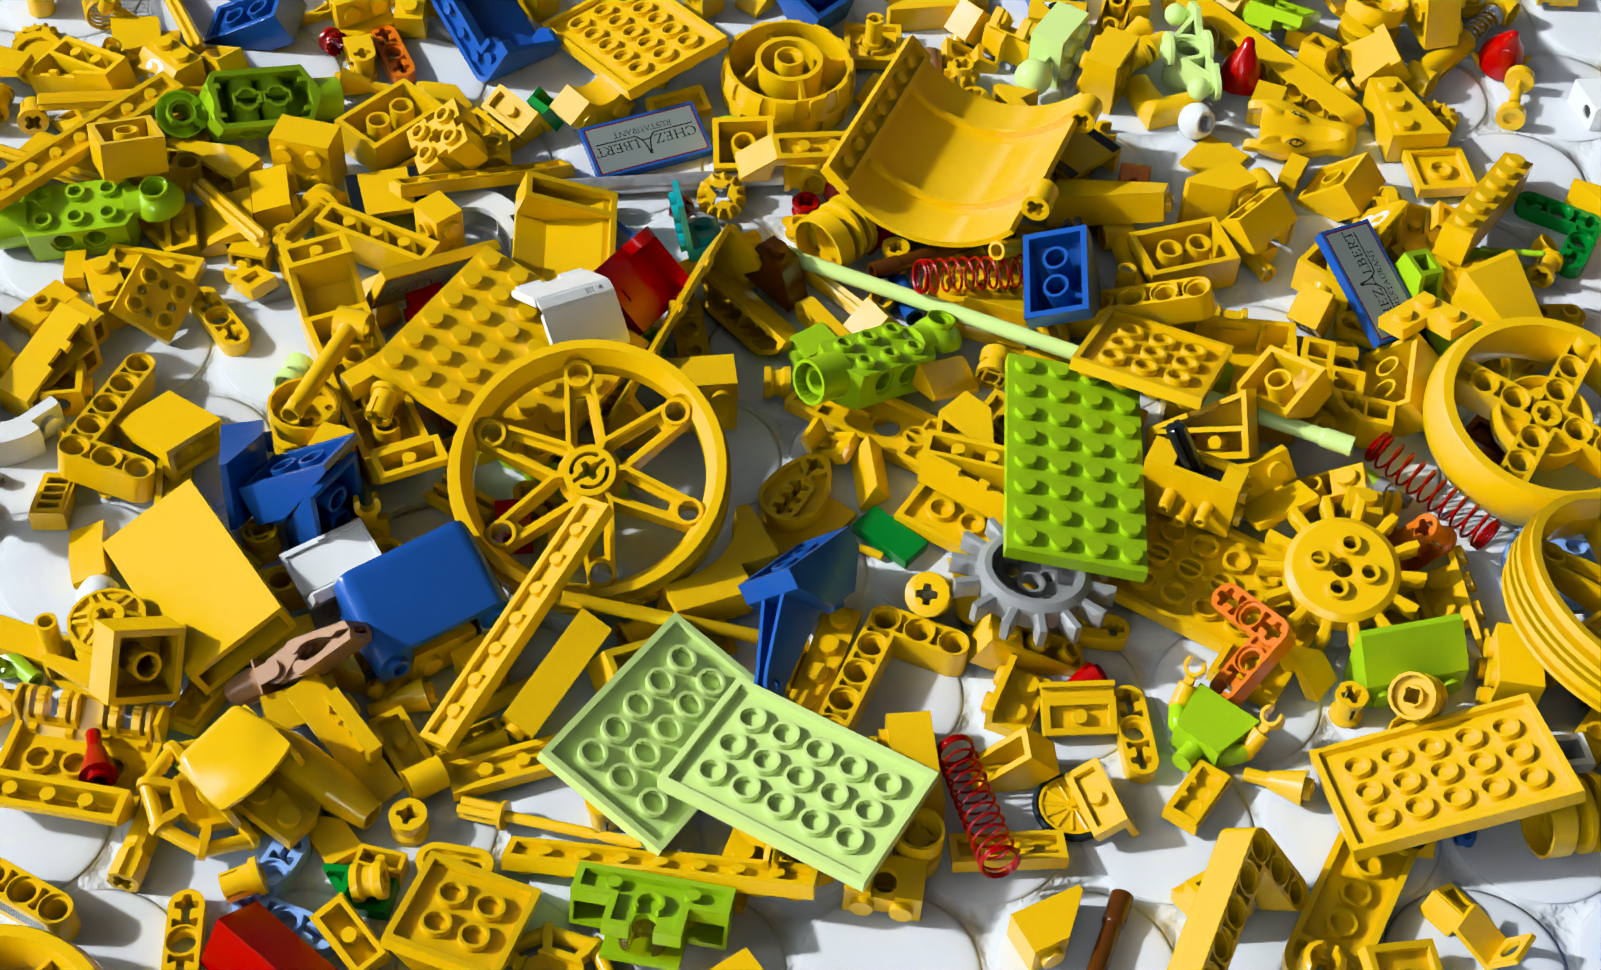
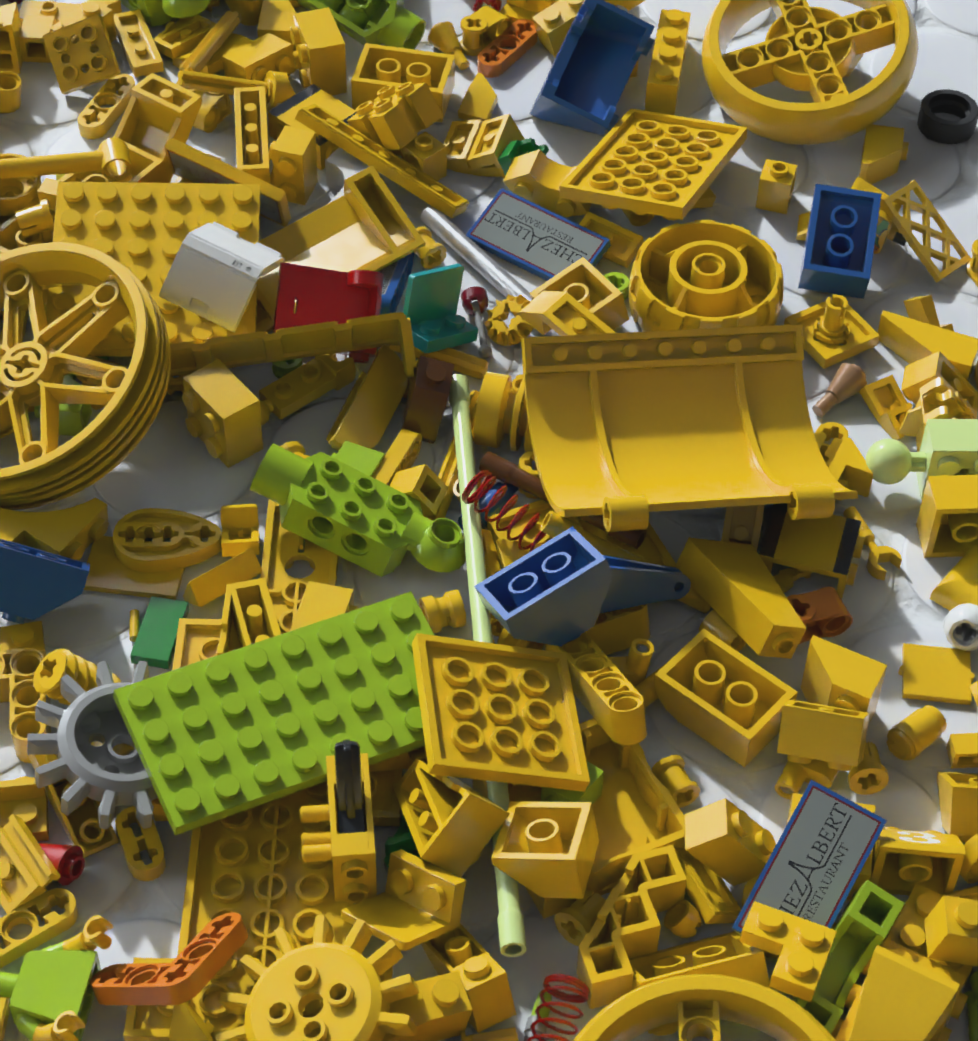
camera: 60 degrees right, 0 degrees up
(945, 378) = (385, 576): yellow slope -> none
(962, 71) = (852, 411): yellow gear -> none

